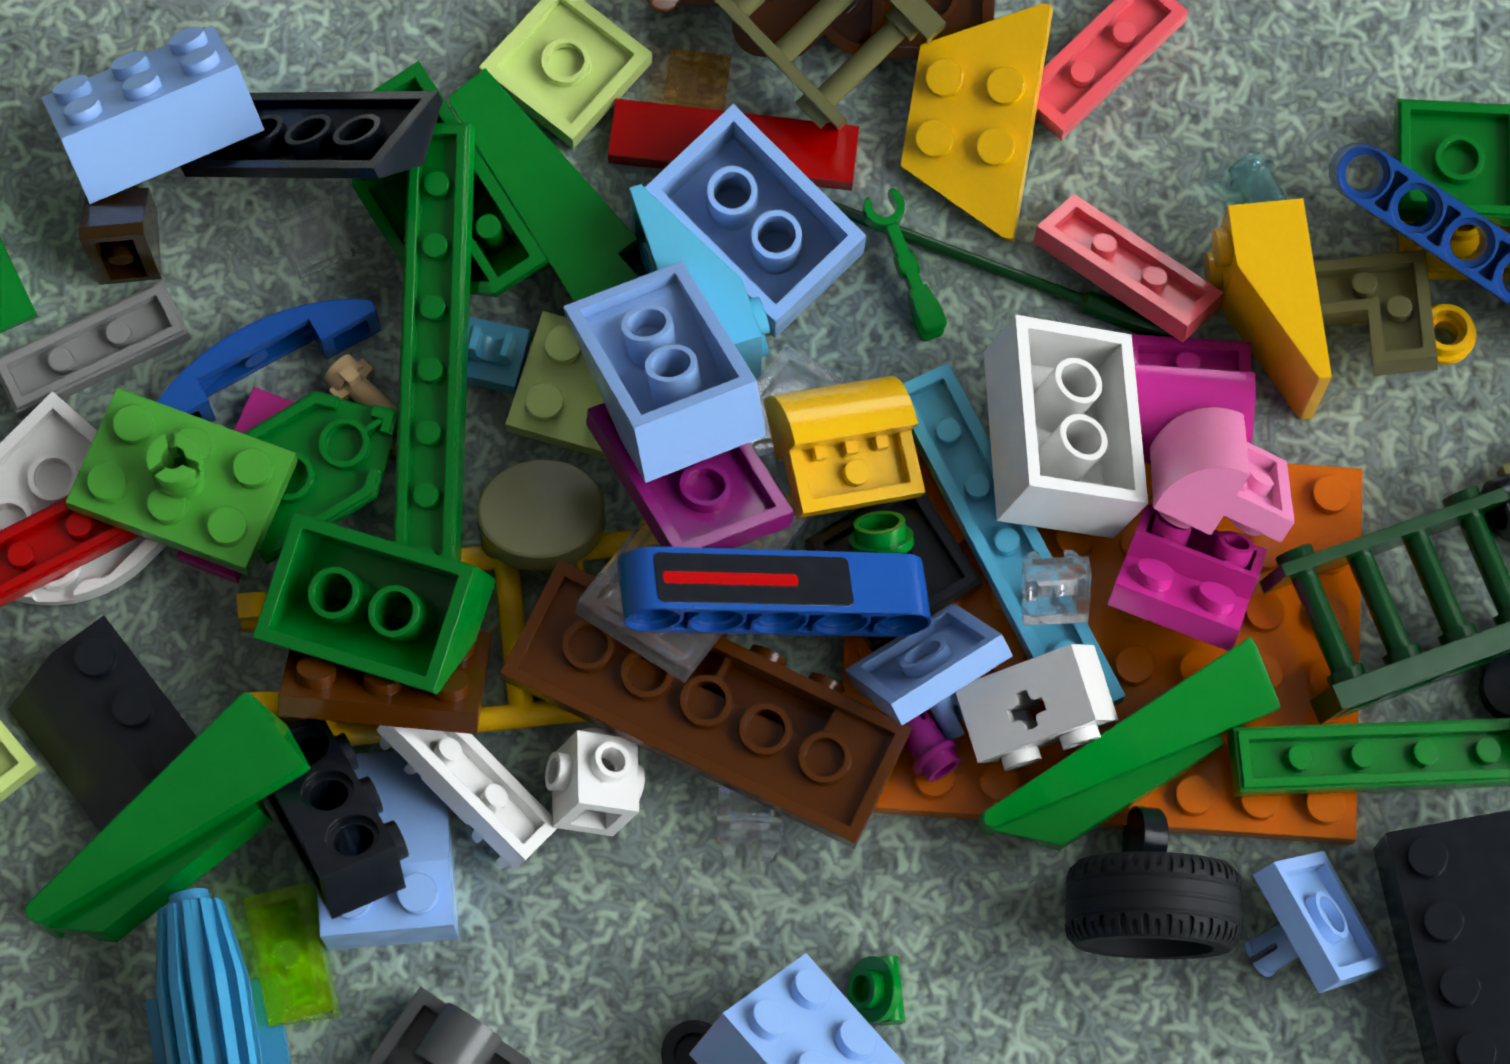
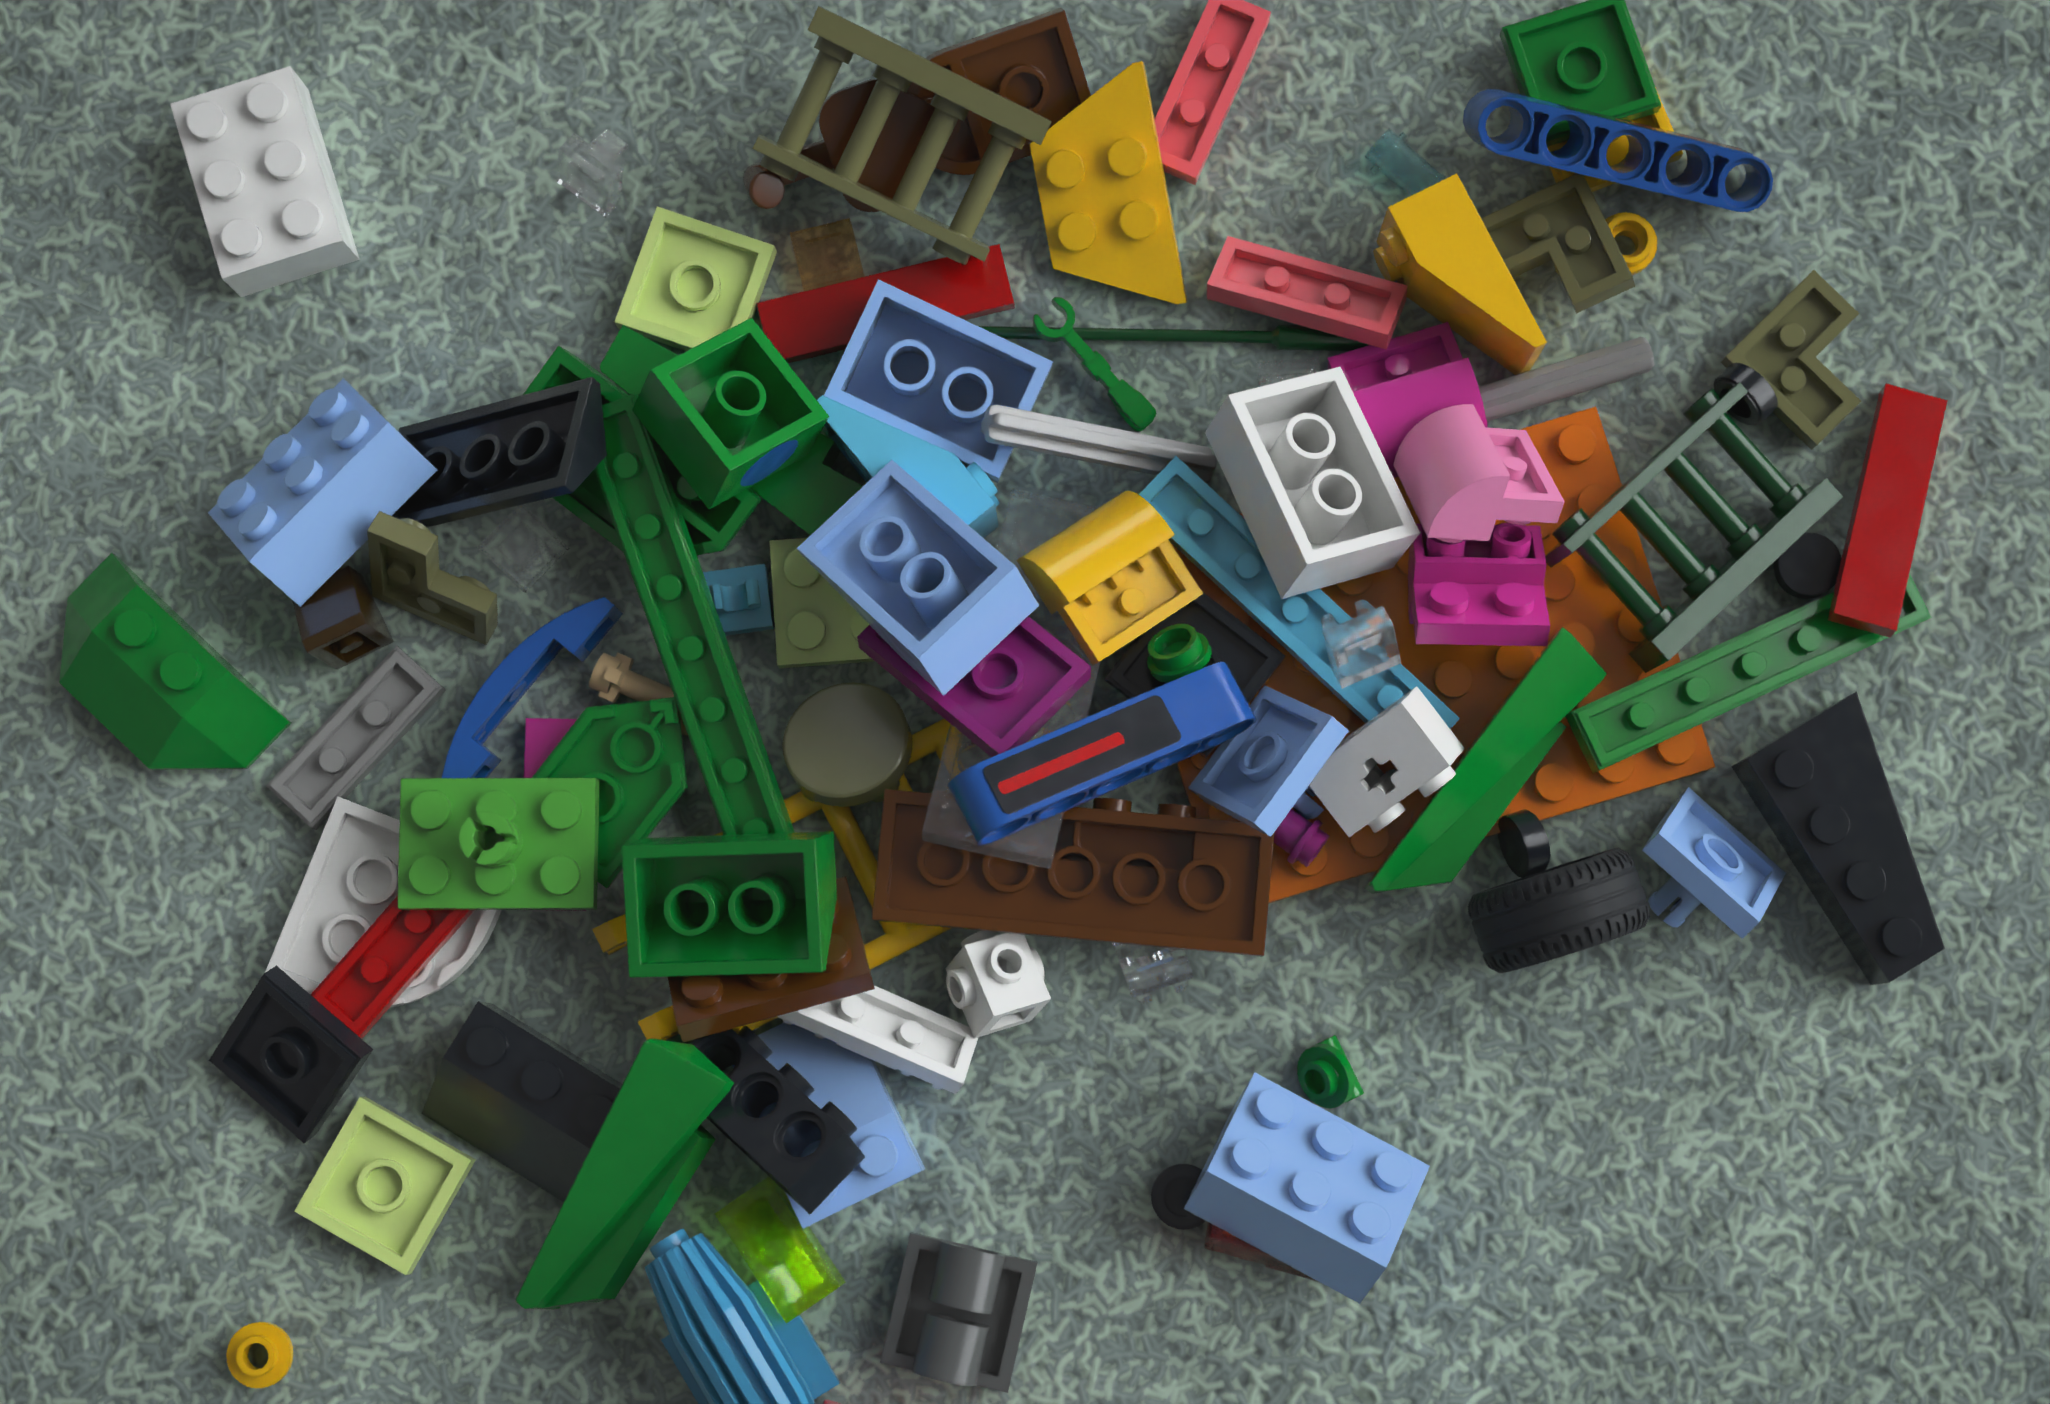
camera: 10 degrees left, 10 degrees up
(200, 227) = (409, 577): none -> olive plate
(550, 168) = (729, 412): none -> green brick
(872, 321) = (1091, 442): none -> light grey axle
(1343, 434) = (1566, 378): none -> light grey axle

